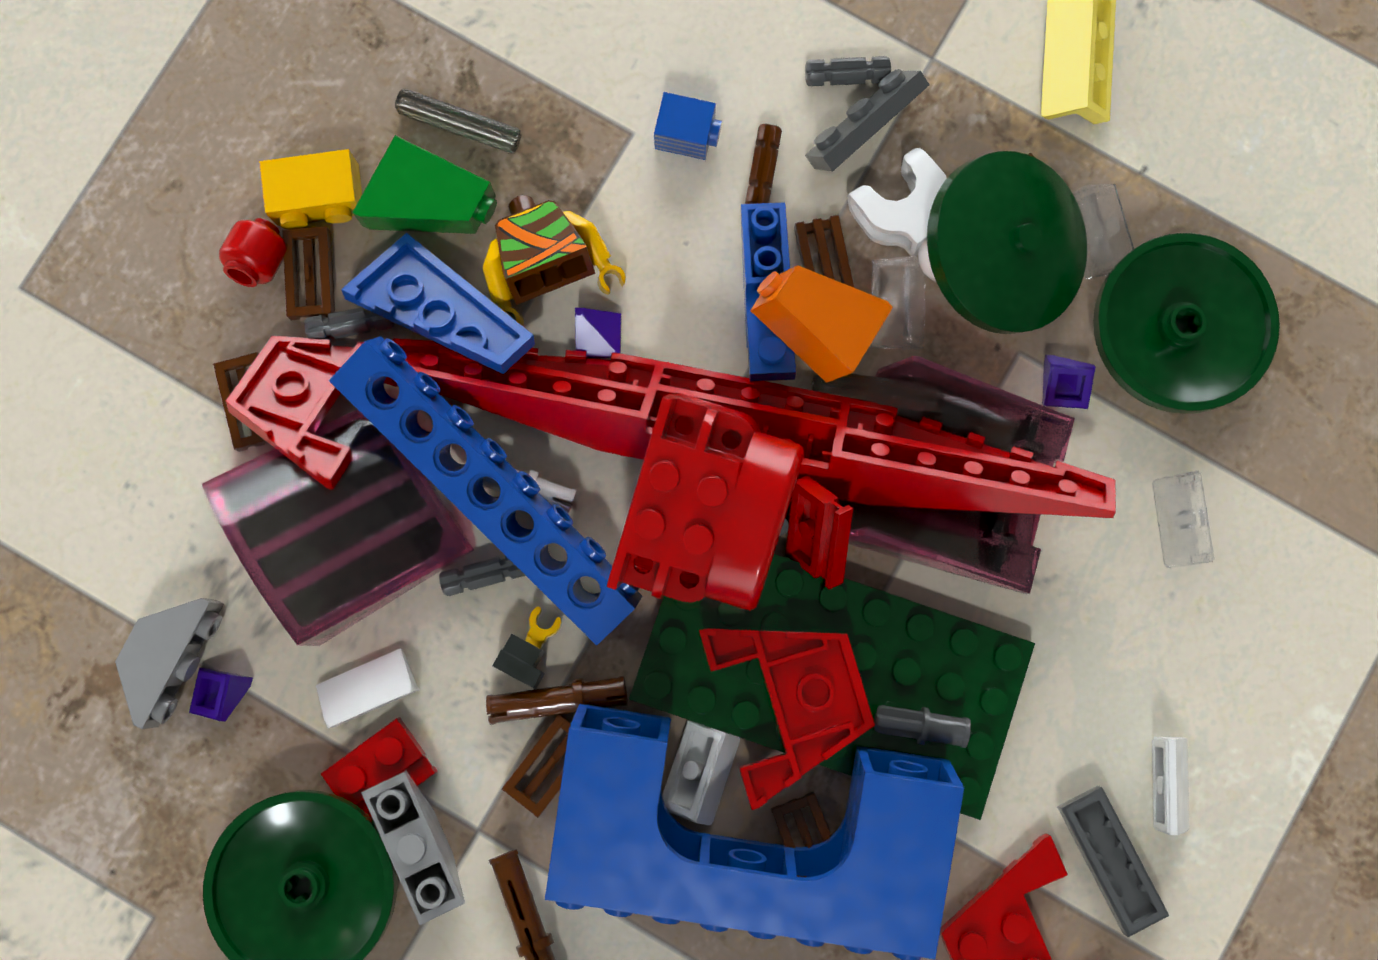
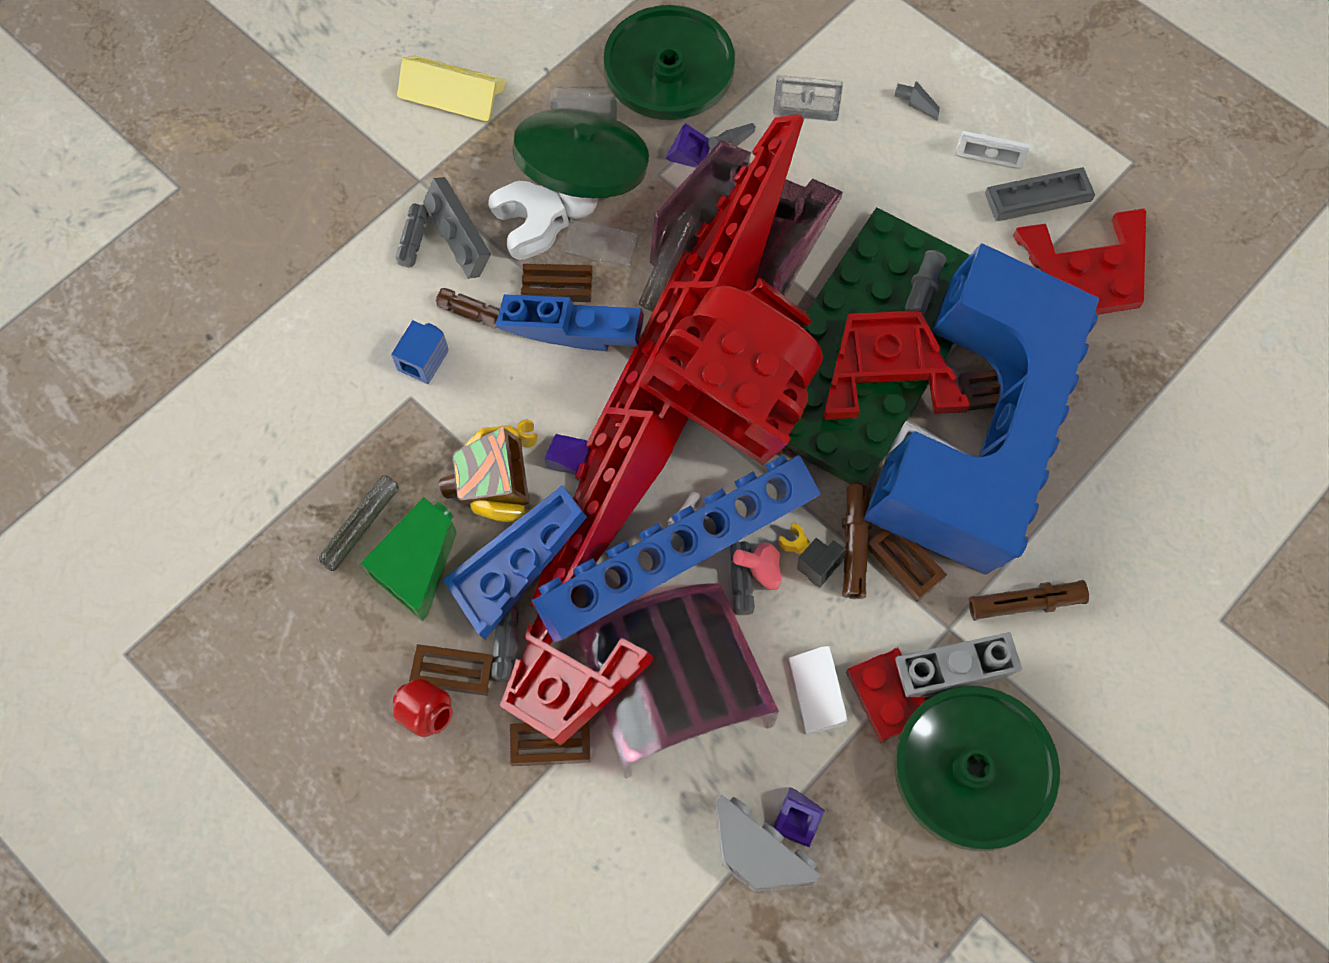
camera: 75 degrees left, 15 degrees down
(311, 188) = (381, 647): yellow brick -> none
(501, 593) = (762, 563): none -> coral rock
(820, 319) = (607, 281): orange slope -> none
(1092, 432) = (734, 136): none -> dark grey bar
(1226, 671) = (918, 99): none -> dark grey bar

